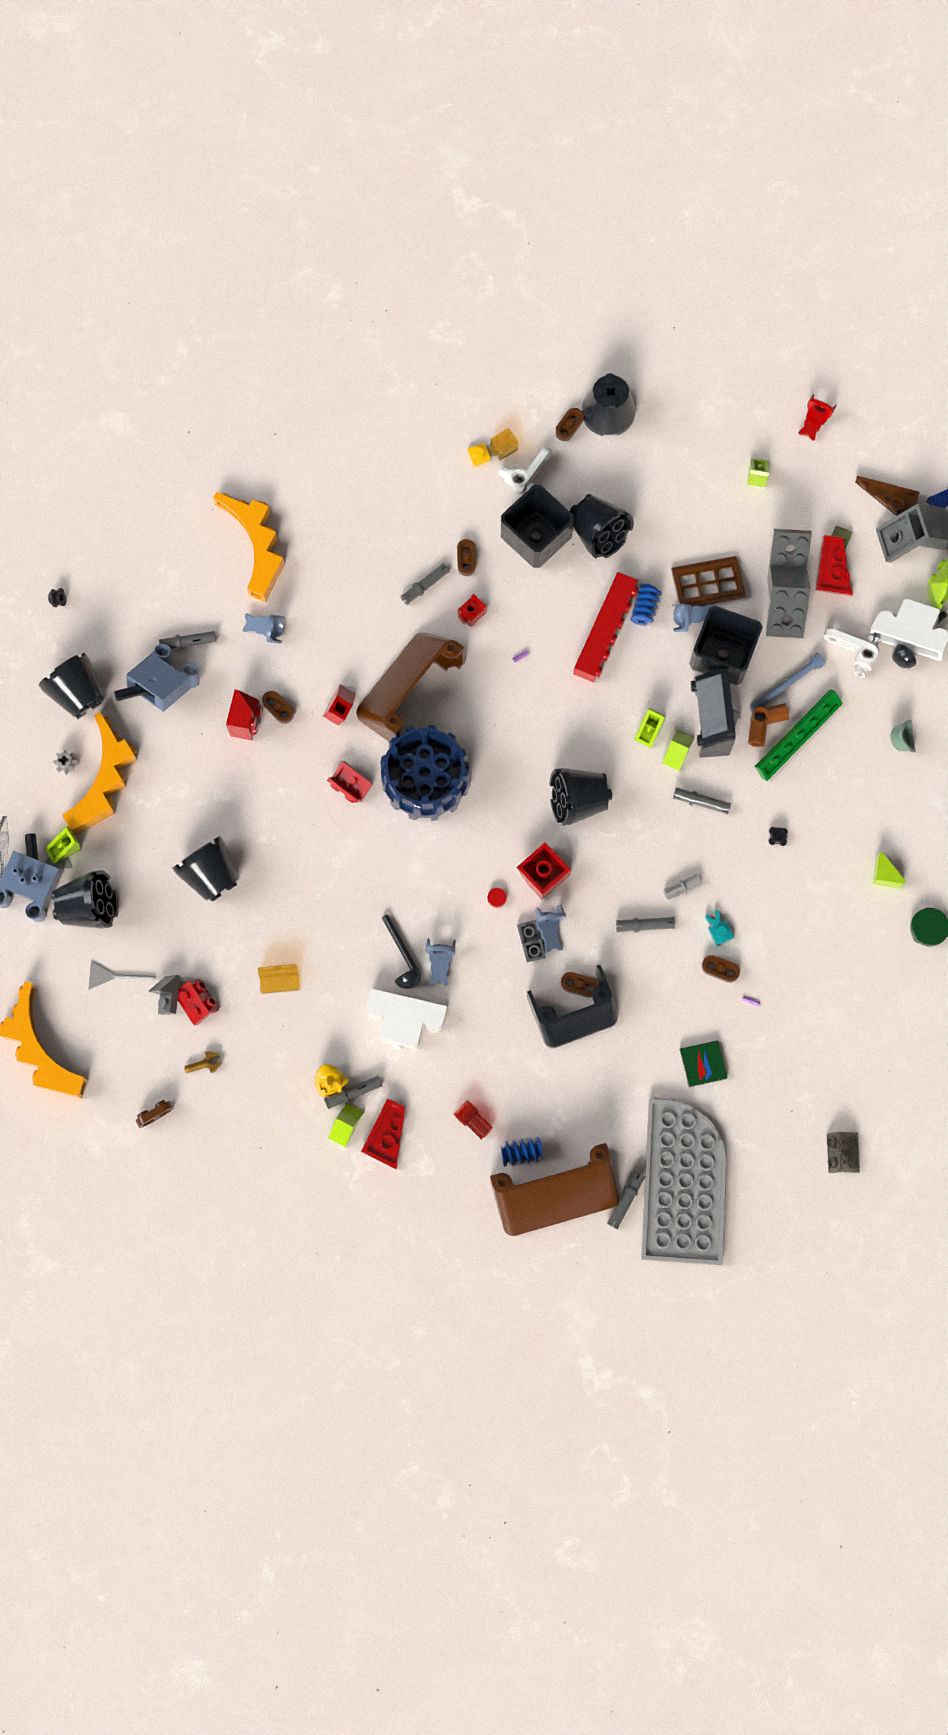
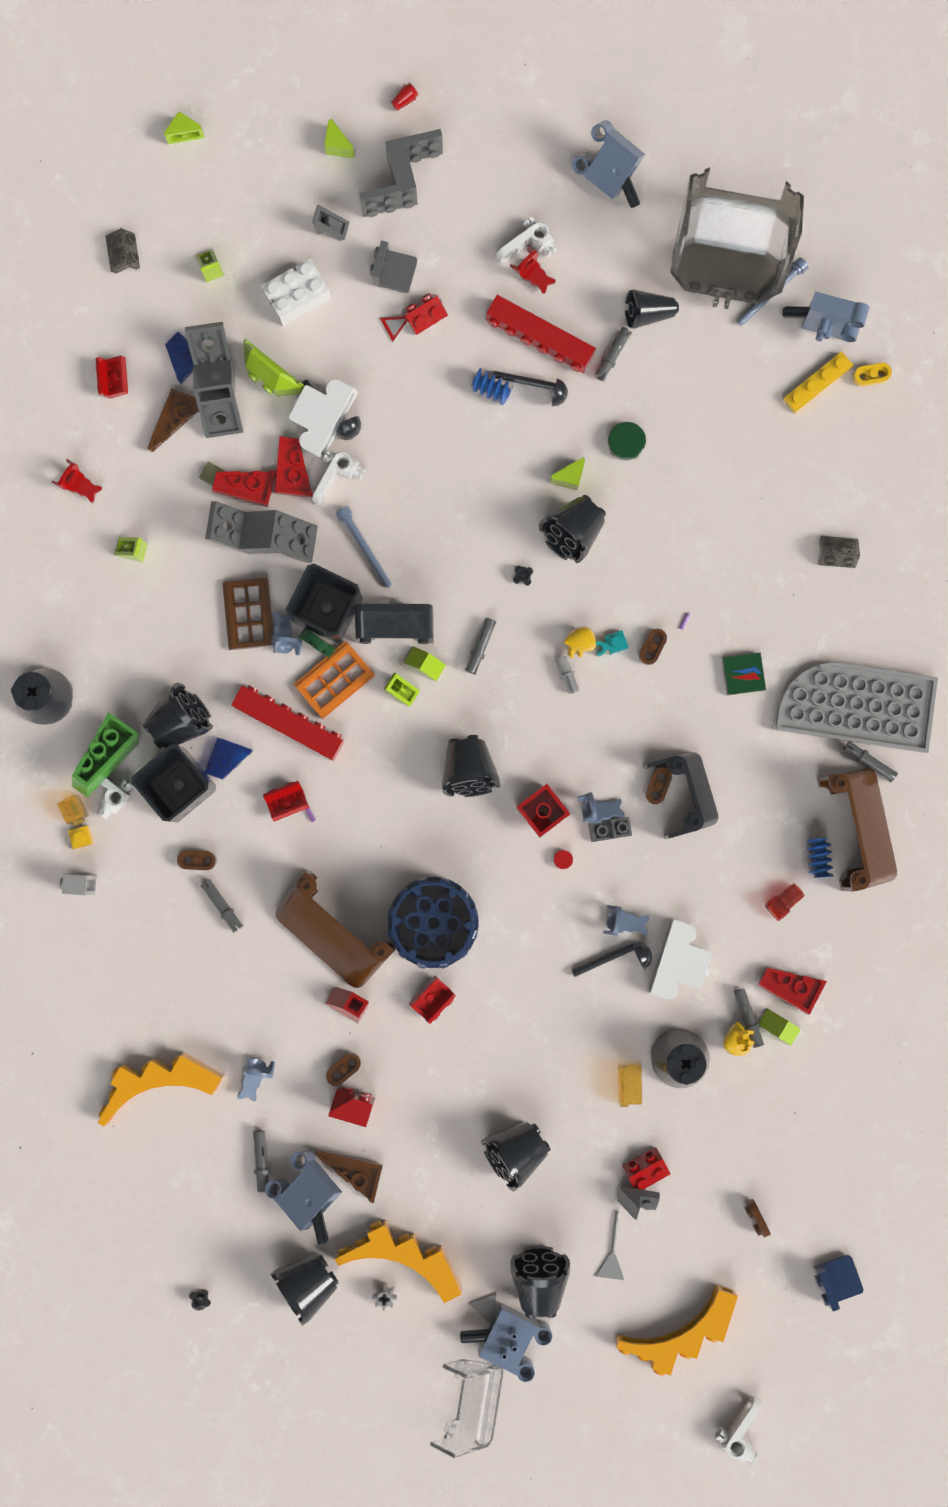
camera: 90 degrees left, 10 degrees up
(63, 846) = (475, 1302): lime slope -> none
(95, 1199) = (838, 1281): none -> dark blue bracket
(180, 730) = (360, 1173): none -> reddish brown wing
(204, 1063) = (709, 1165): pearl gold bar -> none
(310, 1038) = (671, 1049): none -> black cone
(434, 454) = (78, 884): none -> light grey brick
(478, 607) = (251, 854): red brick -> none
(530, 631) = (286, 800): none -> red bracket
(558, 463) = (106, 751): none -> bright green wedge
(566, 575) = (225, 758): none -> clear blue wing
(568, 425) = (57, 739): reddish brown plate -> none
(645, 604) = (268, 679): blue piece -> none
(645, 924) = (602, 715): dark grey pin -> none
(652, 667) = (334, 680): none -> orange piece
(686, 644) = (316, 642): none -> dark green tile
(718, 895) = (579, 641): none -> yellow piece
(758, 728) = (398, 567): dark orange piece -> none
(798, 735) = (421, 542): green plate -> none
(832, 877) = (573, 528): none -> black cone
(854, 608) = (291, 470): none -> red wing
(902, 737) = (434, 440): sand green helmet -> none
(922, 437) = (111, 376): none -> red bracket

